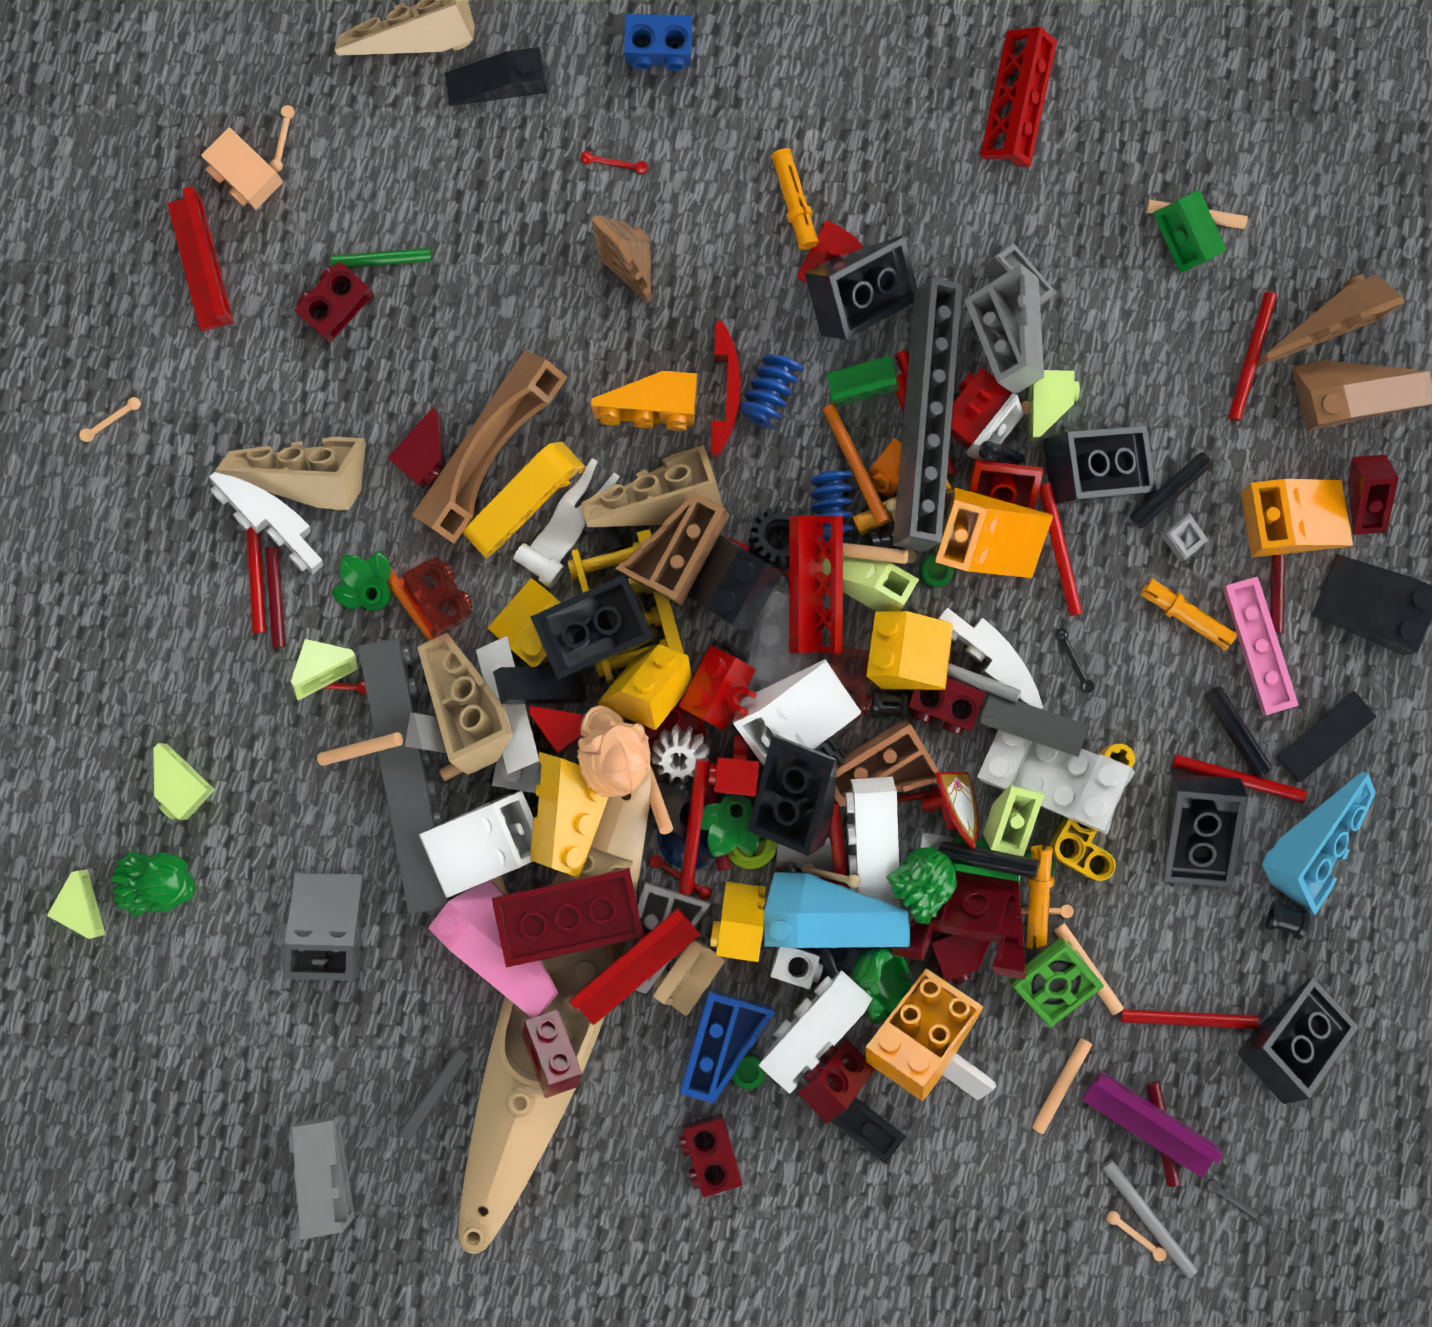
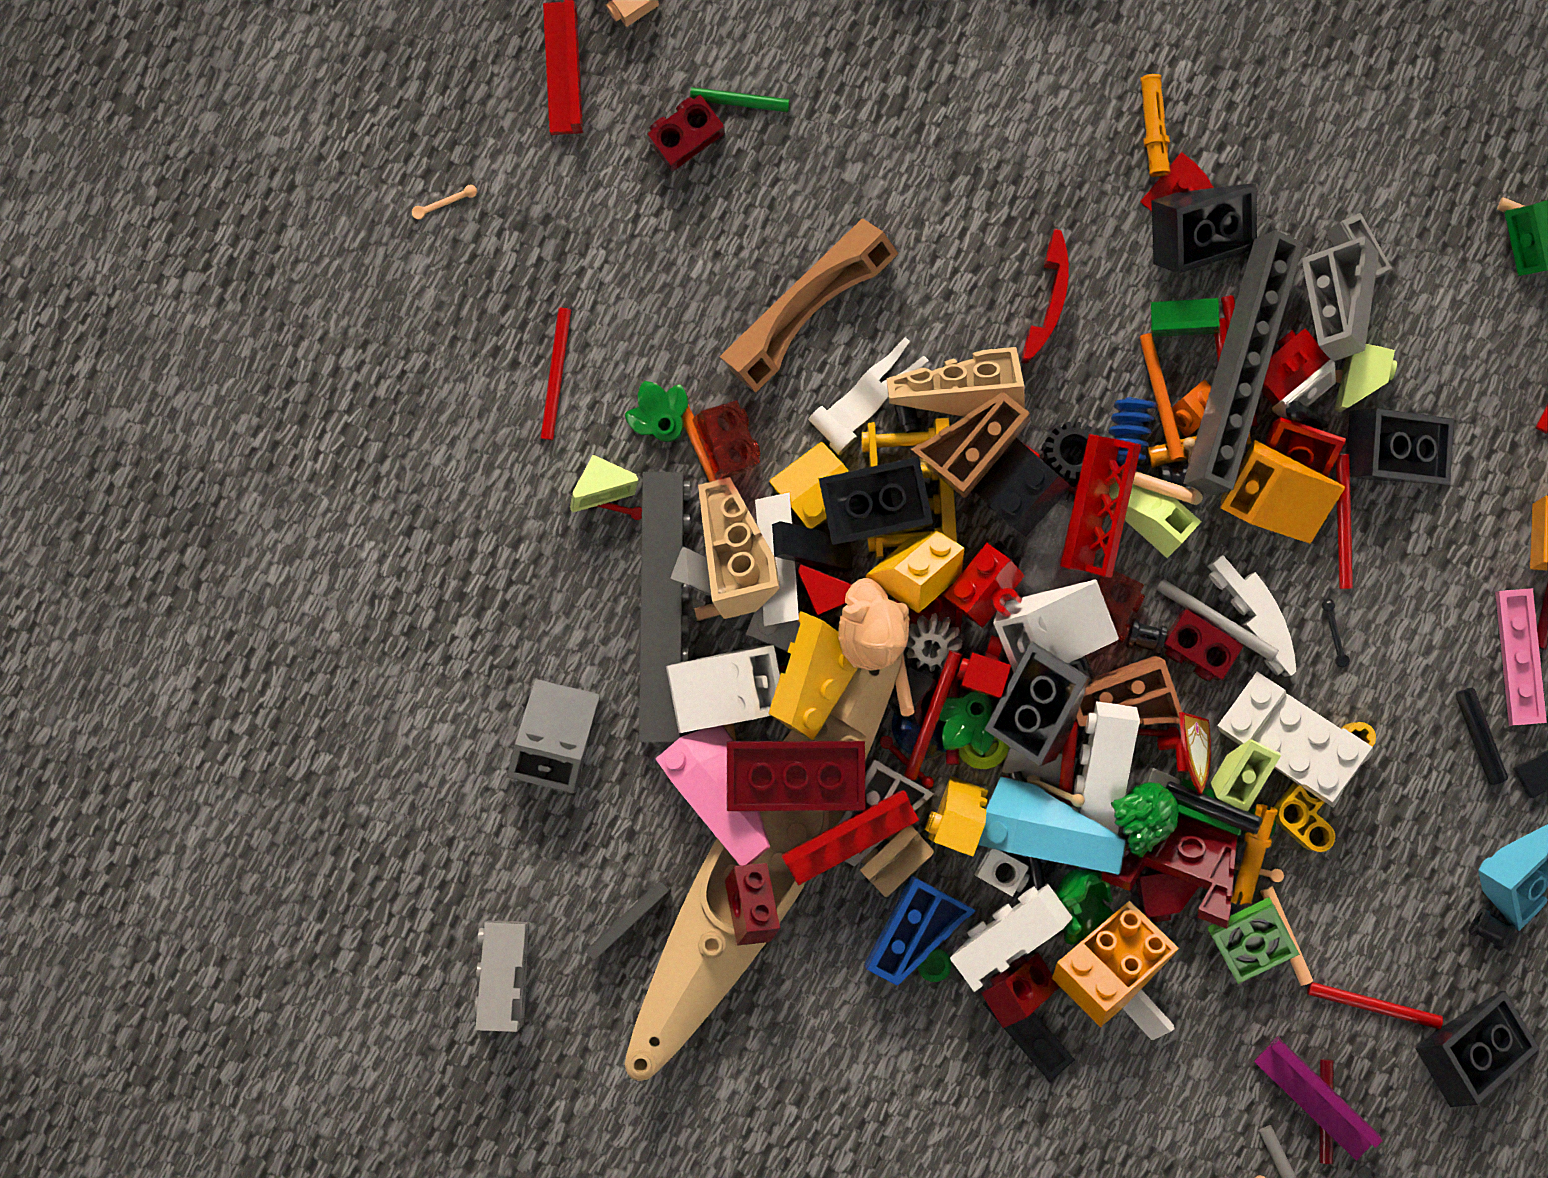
camera: 15 degrees right, 0 degrees up
(78, 906) = (319, 666): yellowish green slope -> none
(151, 883) = (395, 659): green hair -> none
(177, 784) = (439, 569): yellowish green slope -> none
(258, 509) = (574, 319): white slope -> none
(275, 597) = (569, 408): dark red bar -> none
(314, 476) = (632, 298): tan wedge -> none
(360, 749) = (624, 572): light nougat bar -> none
(422, 451) = (741, 296): dark red slope -> none
(523, 497) = (830, 362): yellow beam -> none
(625, 253) = (980, 146): medium nougat wedge -> none
(641, 167) = (1010, 63): red hinge -> none
(656, 399) = (982, 293): light orange slope -> none
(718, 1153) = (891, 1036): dark red brick -> none
(769, 388) = (1092, 305): blue piece -> none
(909, 651) = (1177, 589): yellow slope -> none
(935, 574) = (1216, 519): green tile -> none
(1026, 94) = (1408, 66): red fence -> none
(1034, 724) = (1285, 686): dark grey tile -> none
(1061, 1086) = (1236, 1043): light nougat bar -> none
(1171, 490) = (1465, 486): black axle -> none
(1176, 605) = (1447, 601): light orange pin -> none
(1184, 537) = (1468, 535): light grey tile -> none
(1203, 829) = (1428, 824): black slope -> none
(1248, 780) = (1473, 782): red piece -> none

